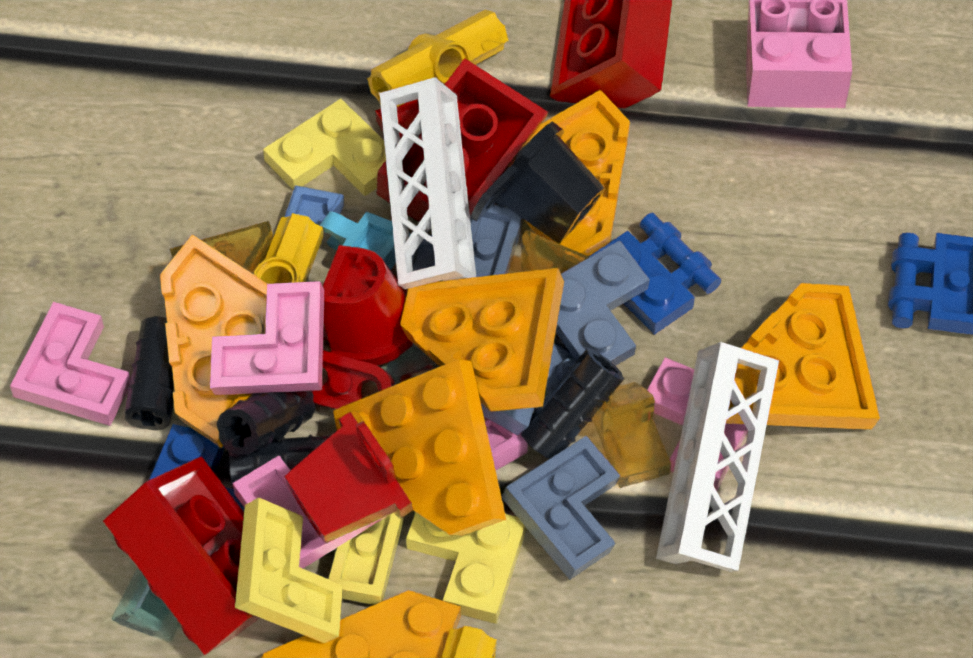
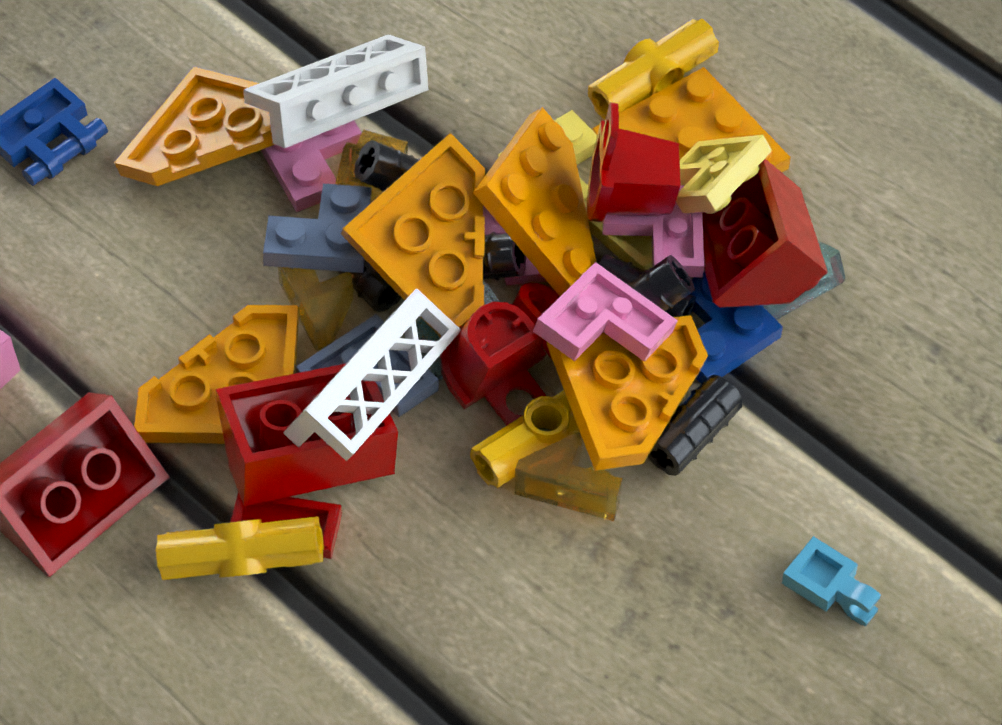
camera: 145 degrees left, 0 degrees up
(59, 371) = (771, 475): bright pink plate -> none
(314, 203) = (459, 500): medium blue tile -> none
(328, 140) = (394, 556): light yellow plate -> none
(369, 233) = (443, 413): medium azure plate -> none
(545, 186) = (268, 338): black container -> none
(553, 505) = (476, 126): sand blue plate -> none
(667, 292) = (247, 277): blue plate -> none

